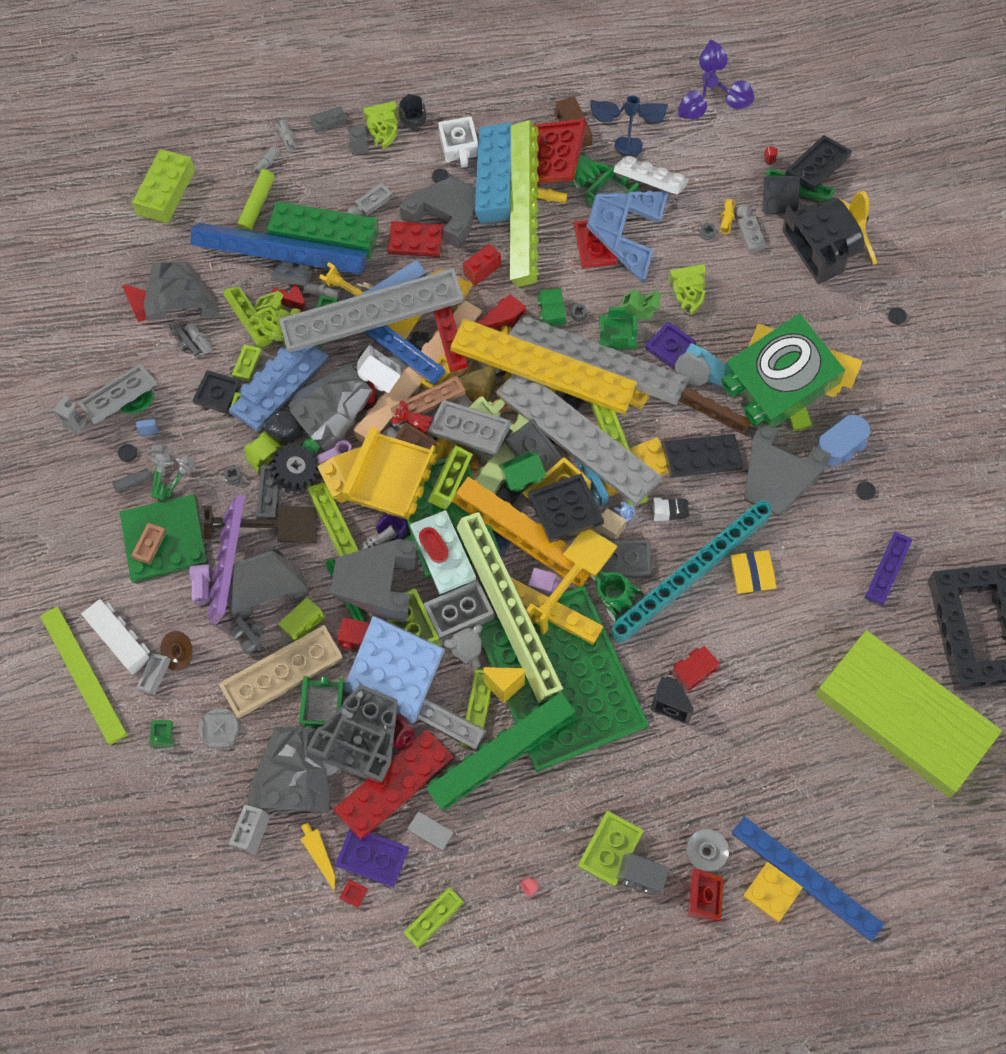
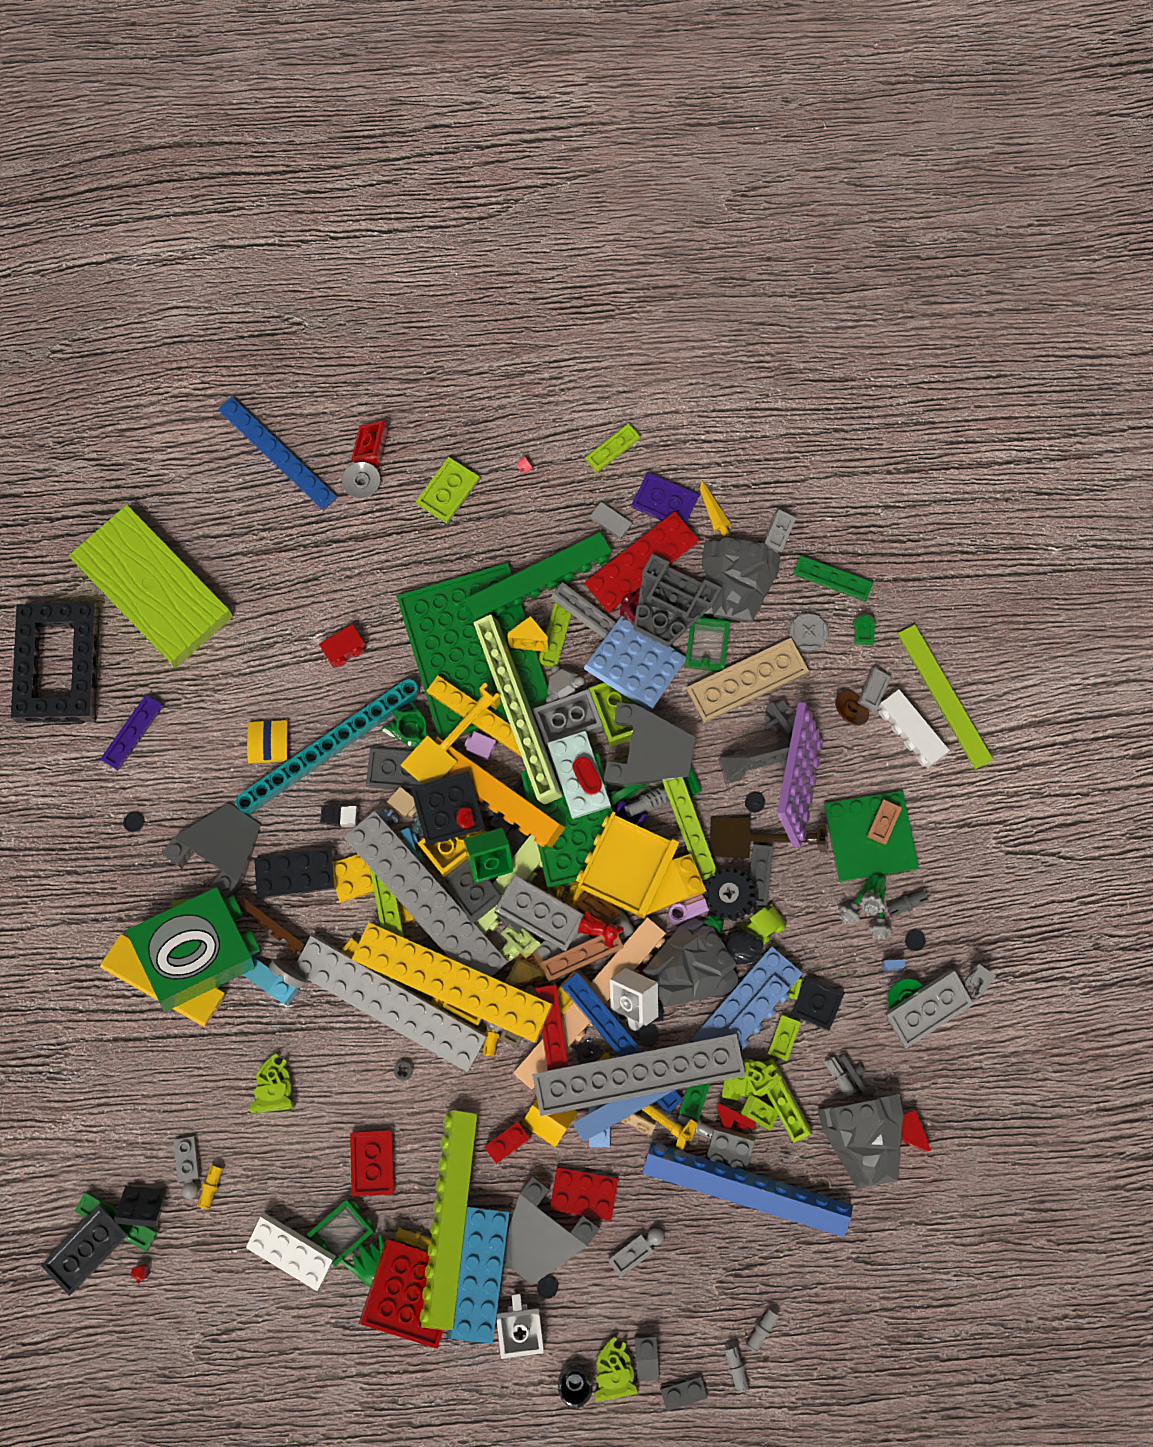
camera: 175 degrees left, 10 degrees up
(163, 186) = (889, 1301): lime brick -> none
(191, 785) = (833, 578): none -> green plate
(200, 578) = (829, 785): lavender piece -> none
(234, 479) = (797, 895): dark grey bush -> none
(256, 200) = (774, 1266): lime brick -> none
(302, 620) = (726, 730): lime hinge -> none
(324, 226) = (693, 1212): green brick -> none
(352, 634) = (672, 708): red brick -> none
(353, 893) = (683, 473): red tile -> none
(450, 477) = (564, 848): lime brick -> none
(504, 314) = (488, 1070): red slope -> none
(547, 495) = (465, 818): none -> red piece
(552, 307) = (432, 1077): green brick -> none
(570, 110) = (374, 1353): reddish brown brick -> none
(606, 111) = (275, 1362): dark blue plant -> none
(608, 221) = (350, 1183): medium blue wing -> none
(618, 329) = (362, 1040): green panel -> none
(641, 305) = (331, 1068): bright green brick -> none
(642, 873) = (422, 462): dark grey brick -> none
(669, 344) = (306, 1015): dark purple plate -> none
(672, 701) = (373, 612): black slope -> none
(708, 226) = (234, 1163): dark grey bush -> none
(710, 60) = (189, 1401): dark purple plant -> none
(772, 892) = (309, 444): yellow plate -> none
(829, 234) = (99, 1136): black brick -> none
(845, 439) = (143, 877): medium blue brick -> none
(897, 315) = (45, 1032): black piece -> none

